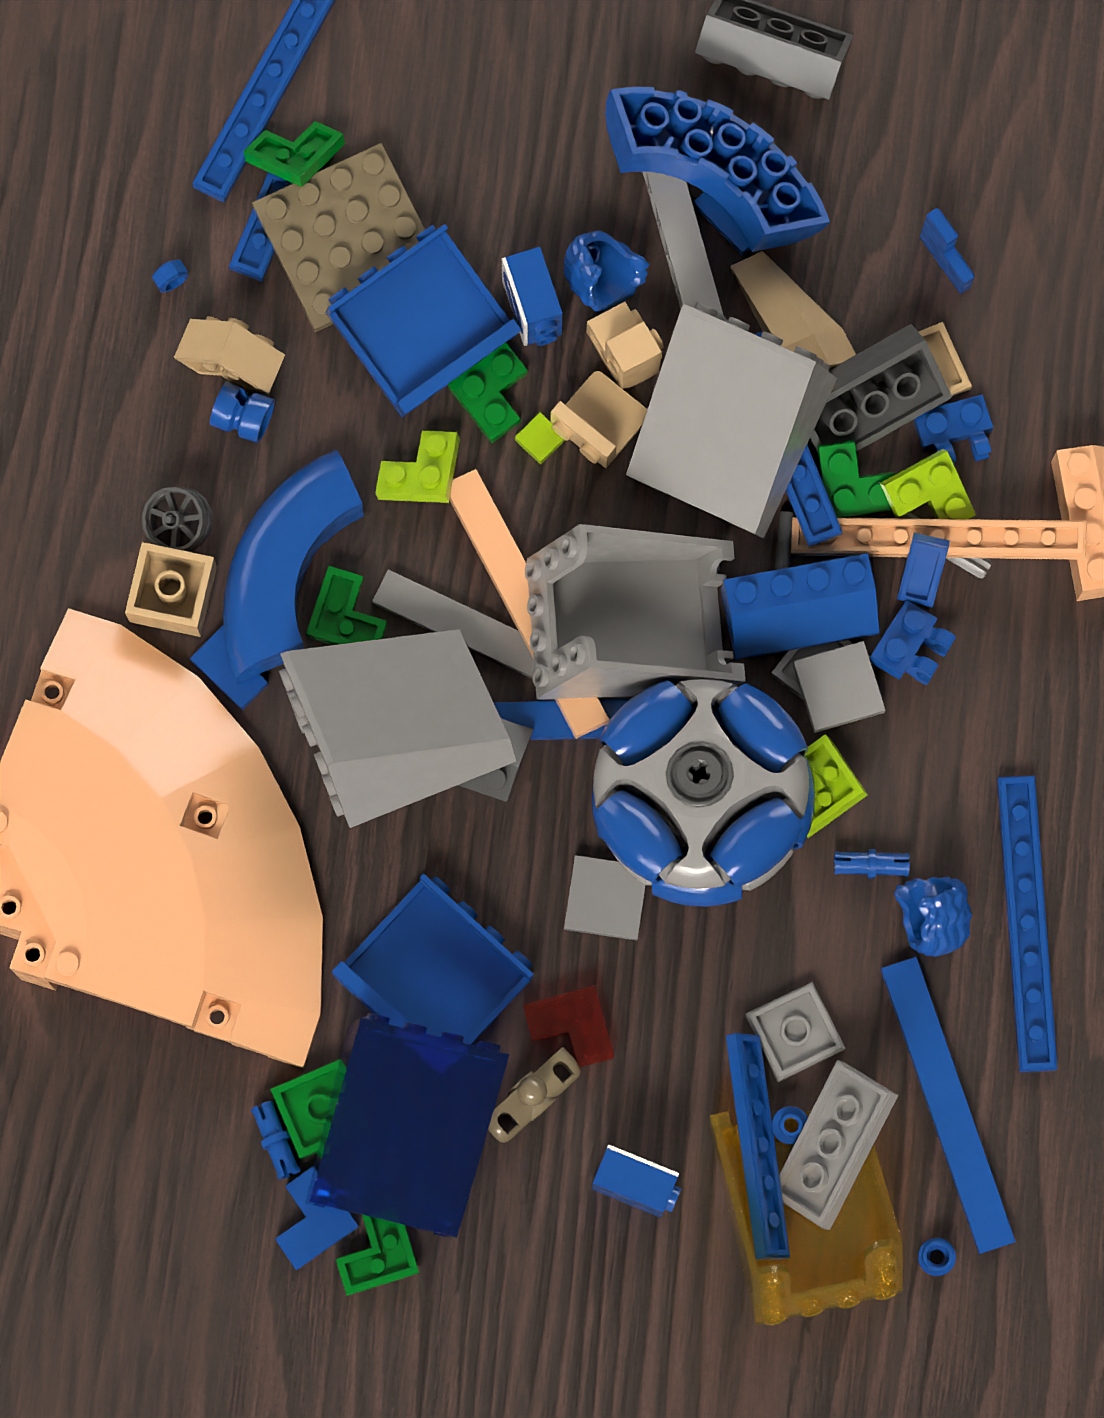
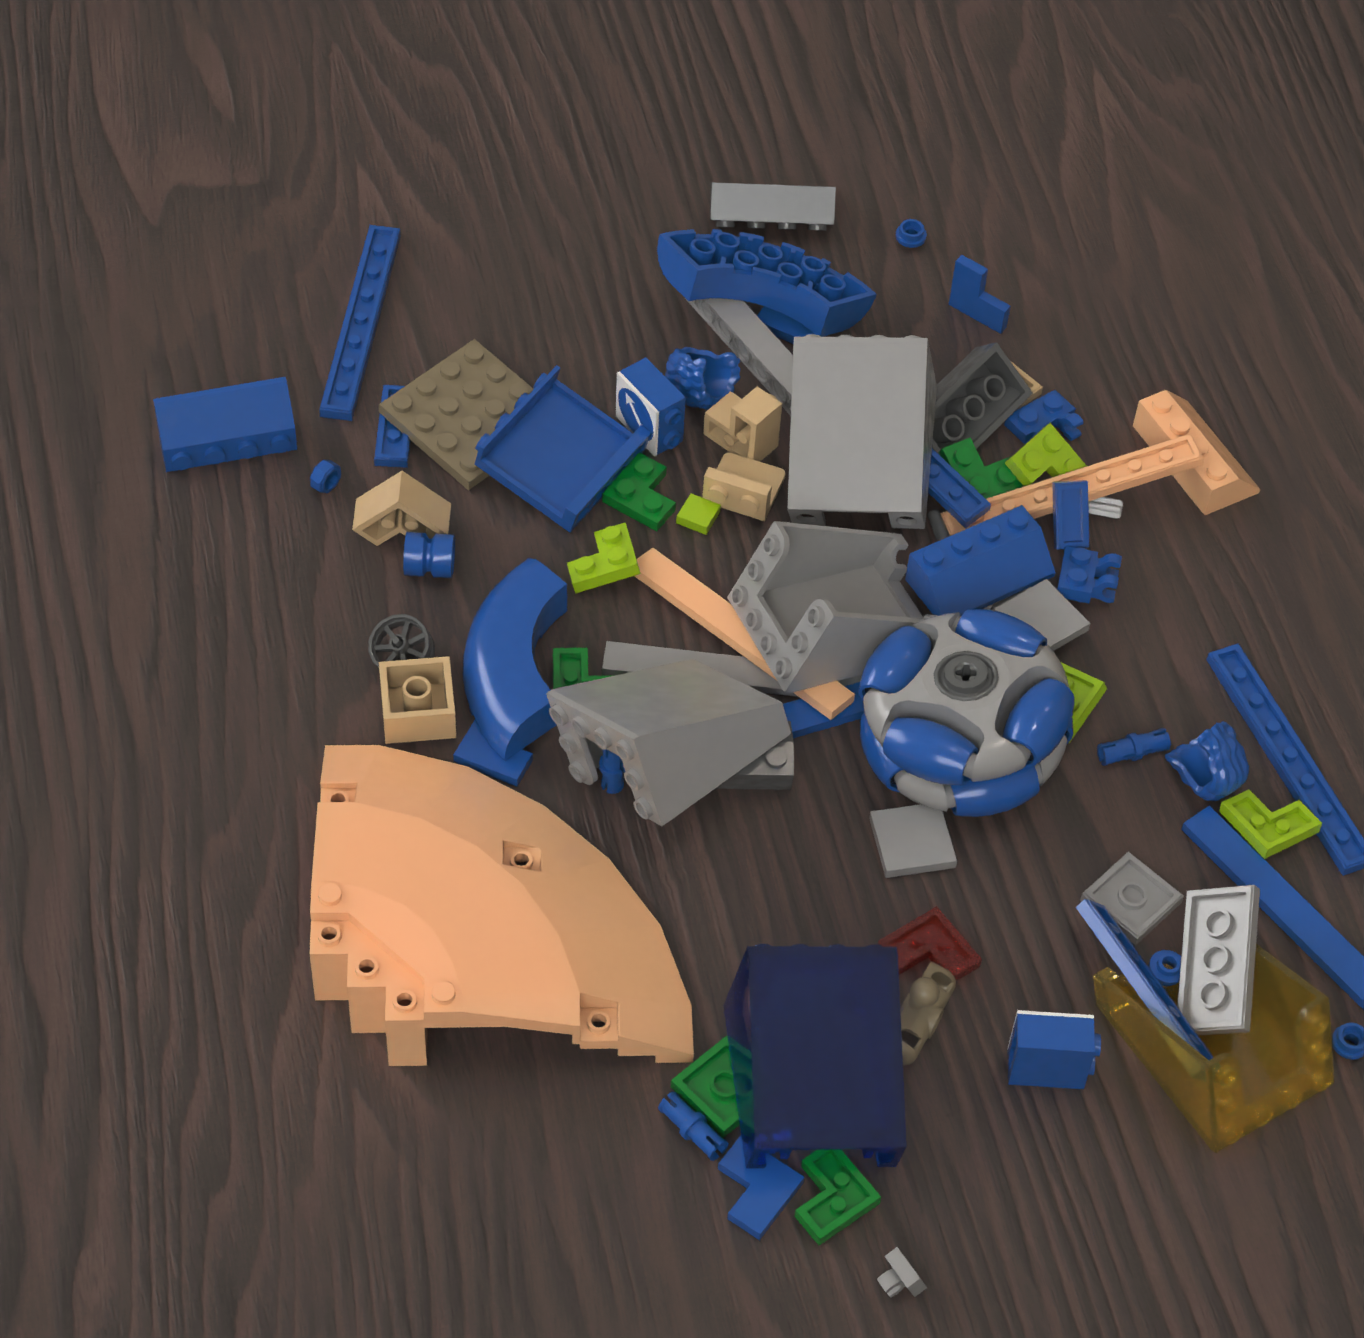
camera: 20 degrees left, 25 degrees down
(83, 187) = (225, 424): none -> blue slope
(298, 159) = (405, 368): green plate -> none
(409, 1354) = (900, 1276): none -> light grey tile
(435, 966) = (777, 910): blue panel -> none
(917, 122) = (911, 233): none -> blue plate
(960, 1004) = (1268, 830): none -> lime plate

